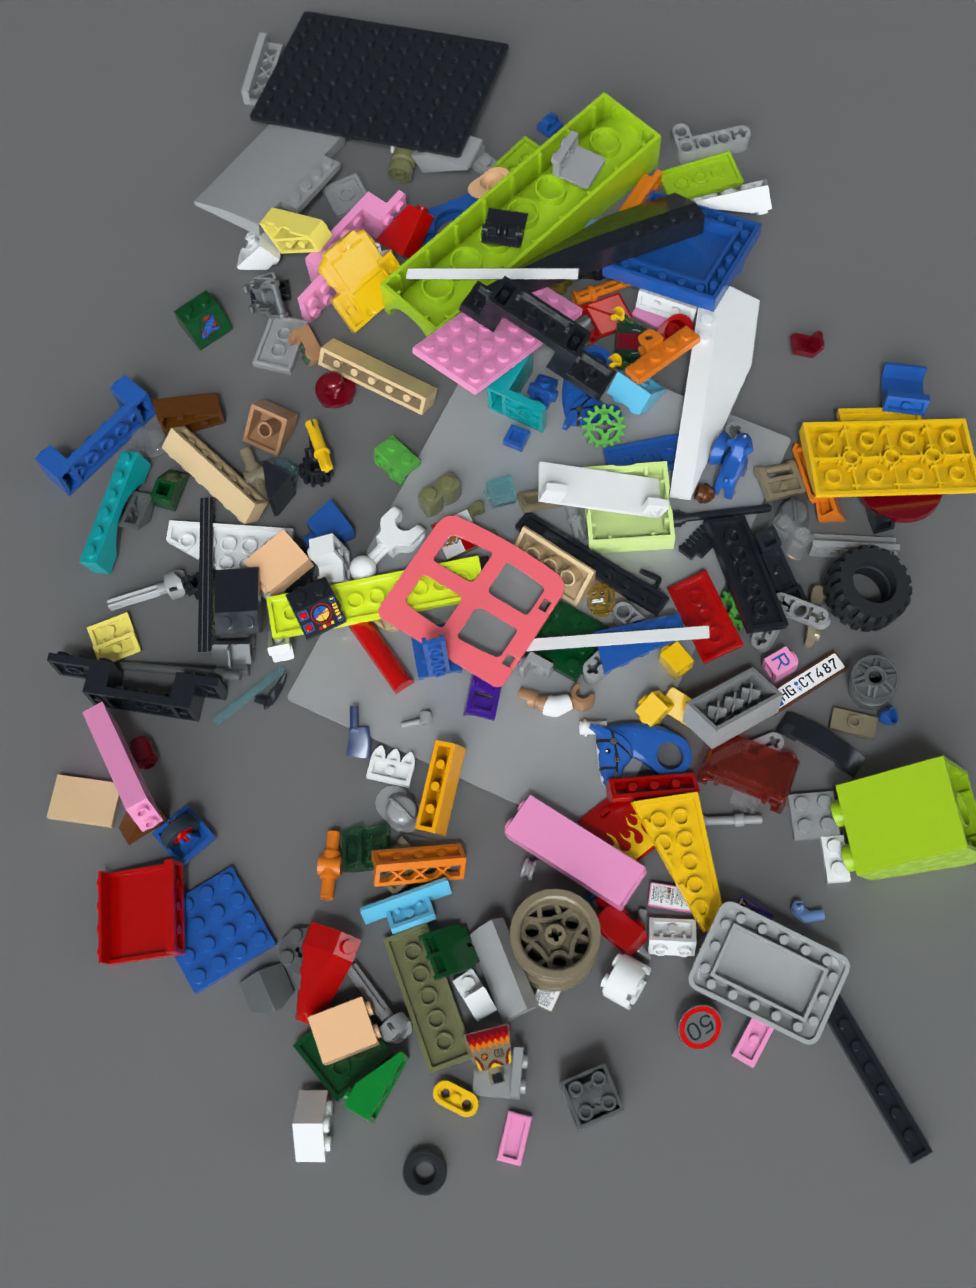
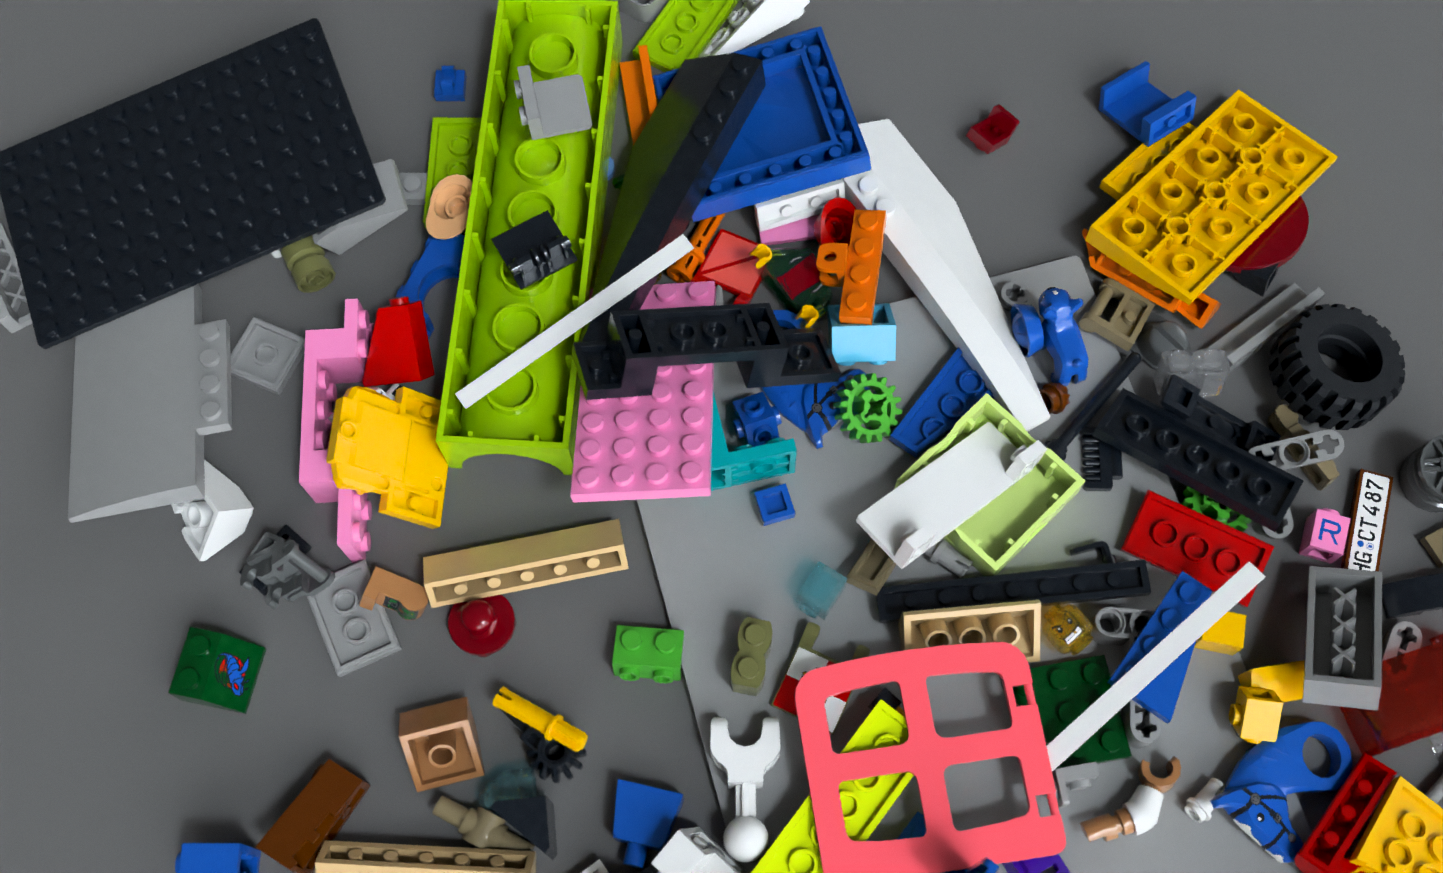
camera: 45 degrees left, 0 degrees up
(295, 231) = (254, 456): light yellow wedge -> none

